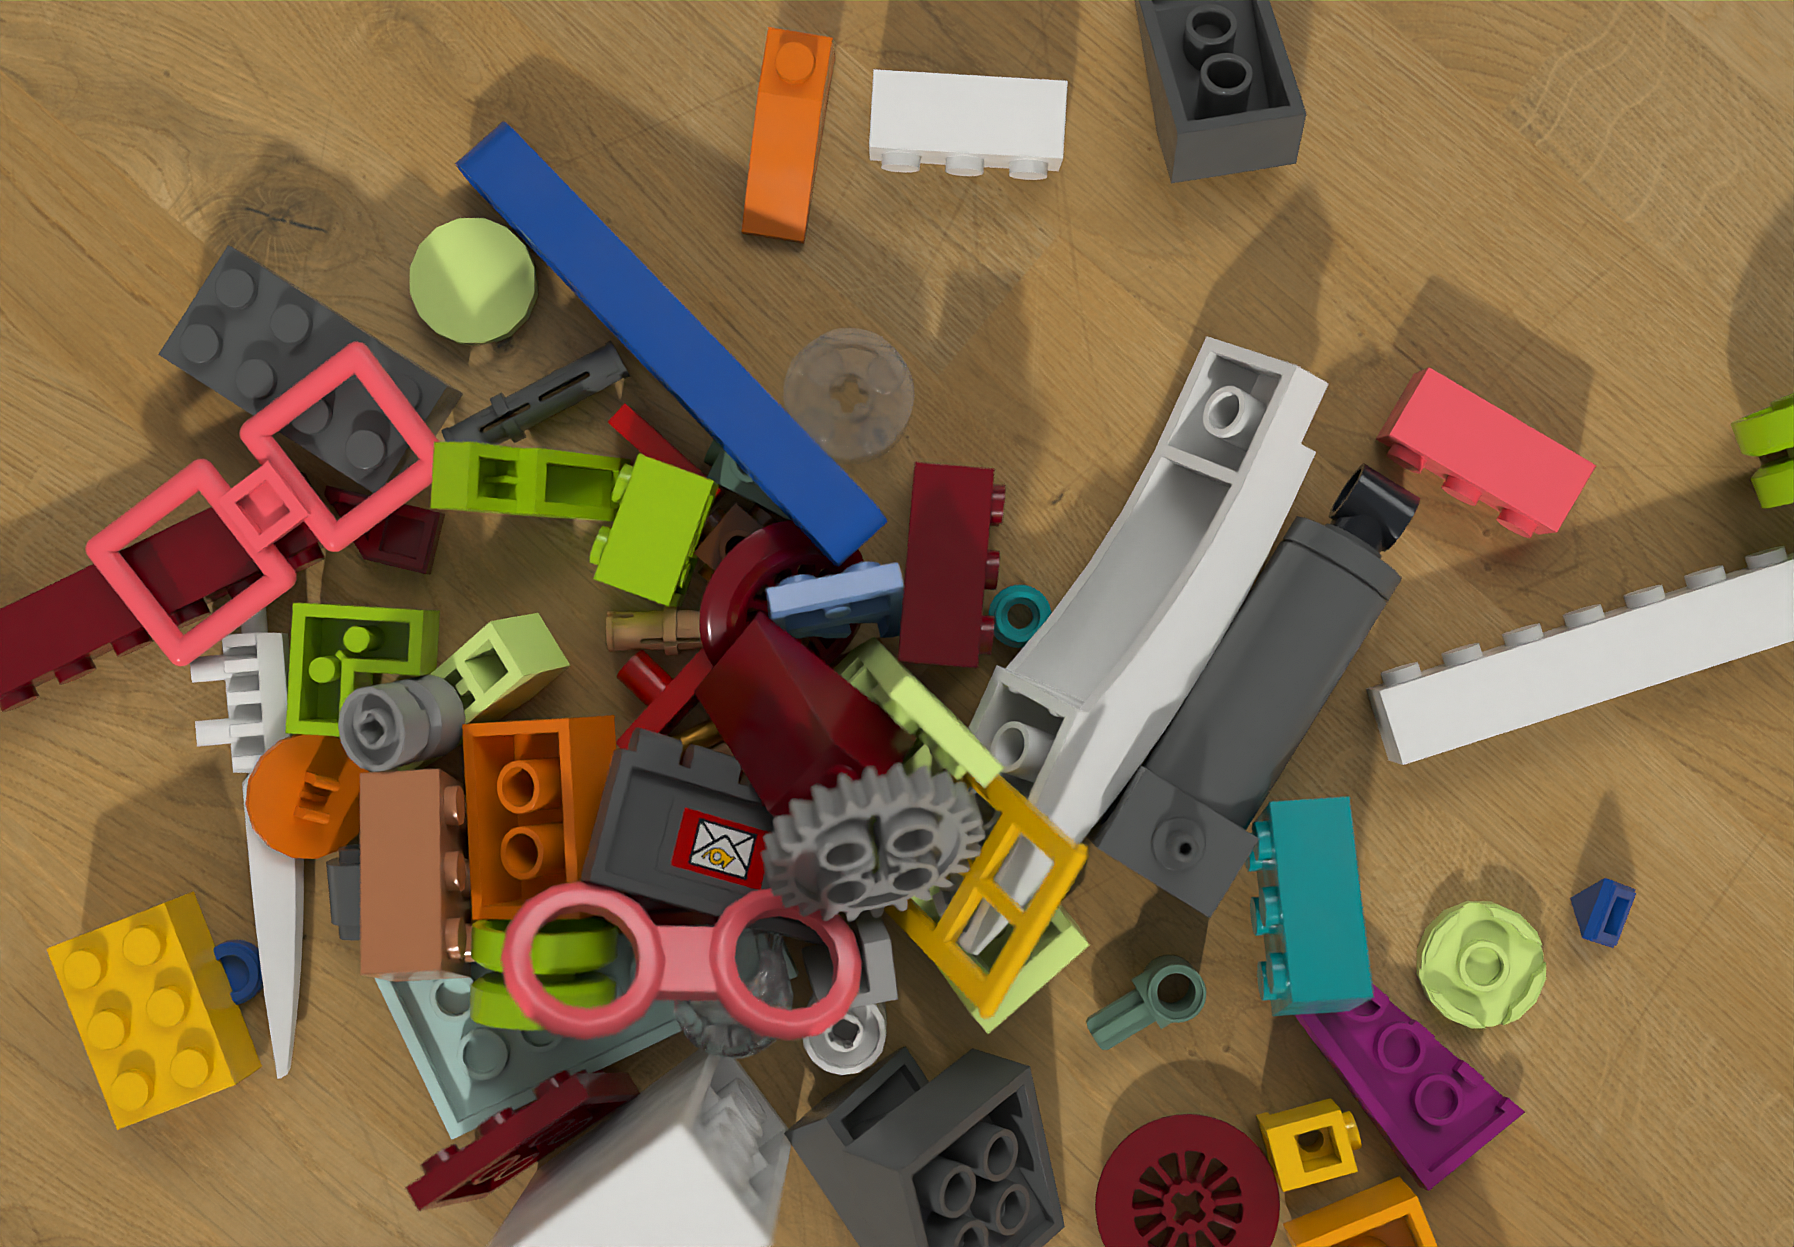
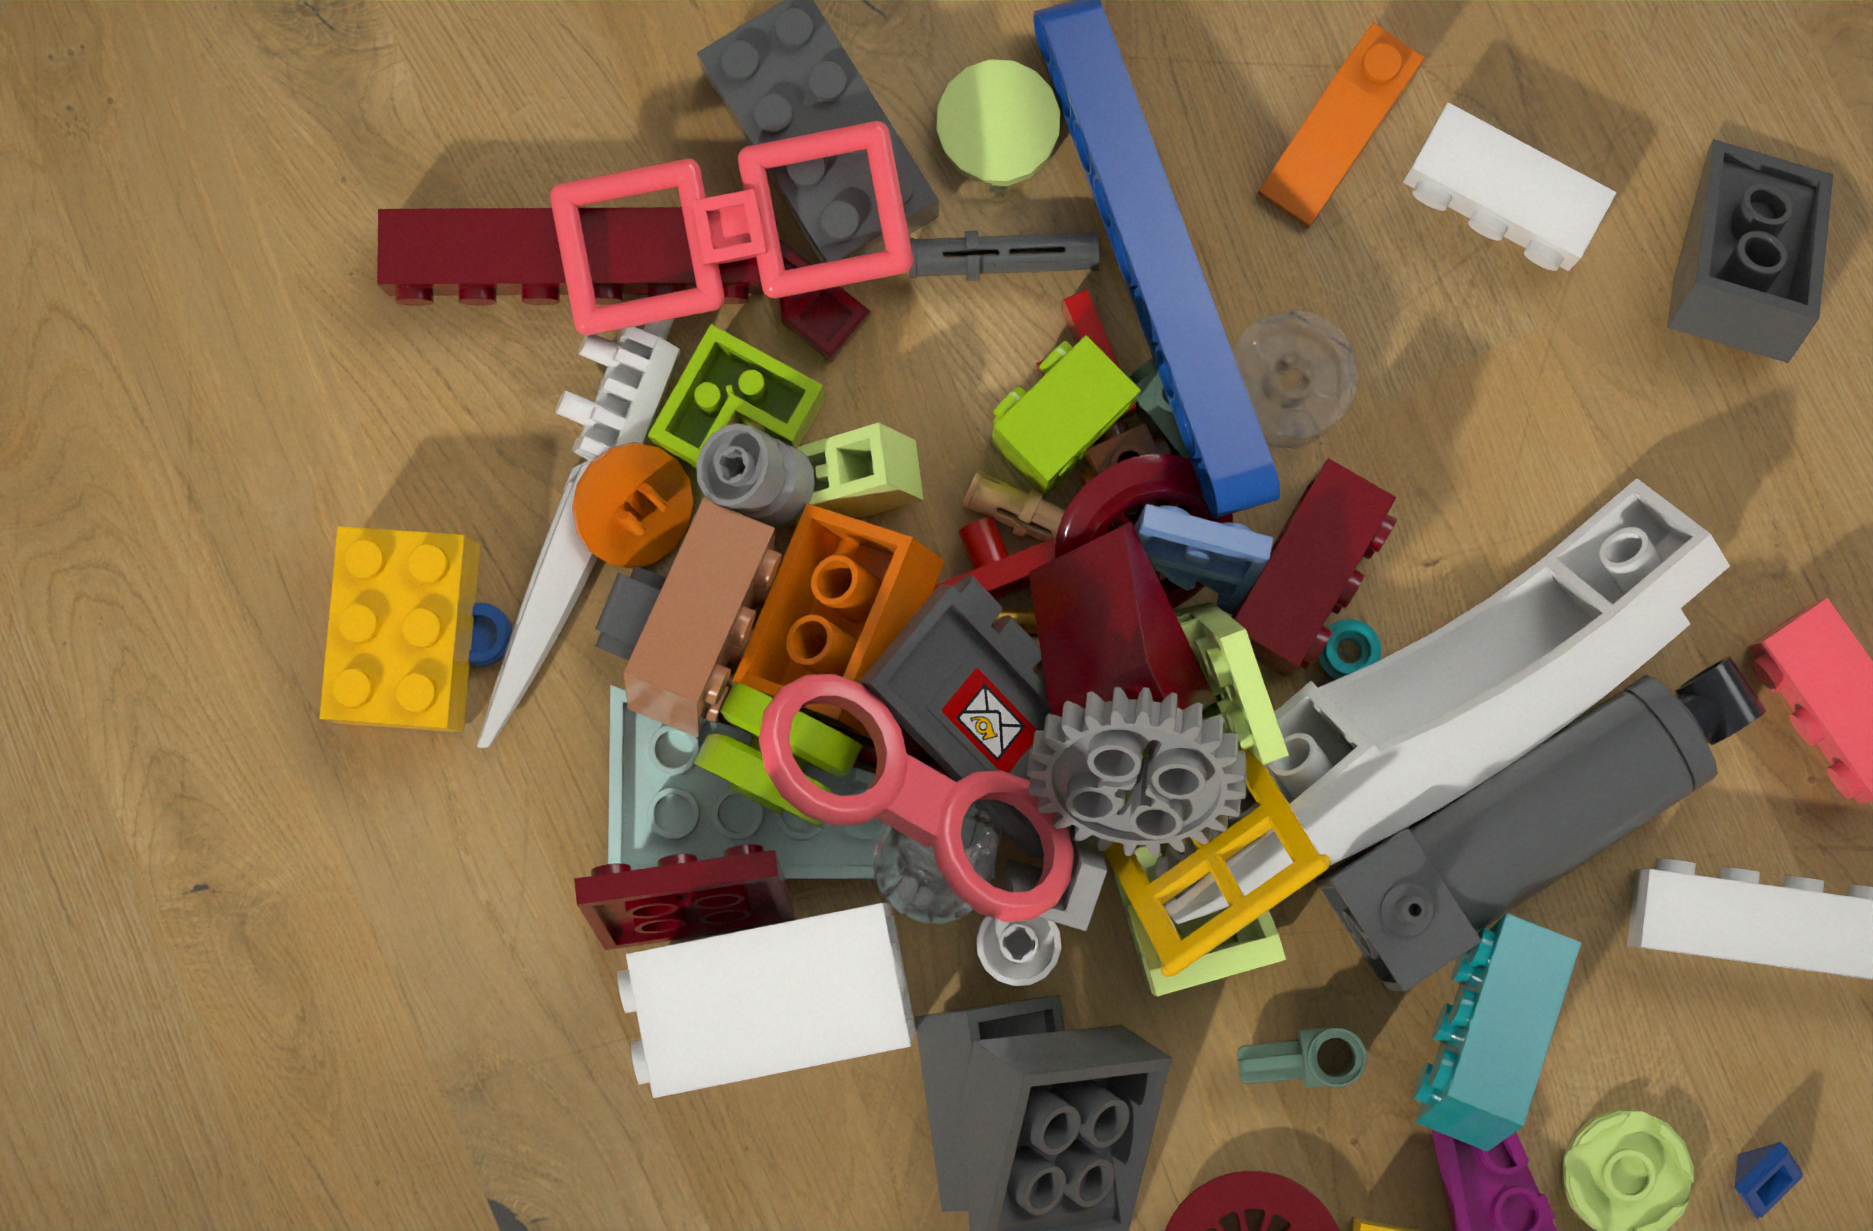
camera: 30 degrees right, 5 degrees down
(524, 481) = (967, 316): lime slope -> none

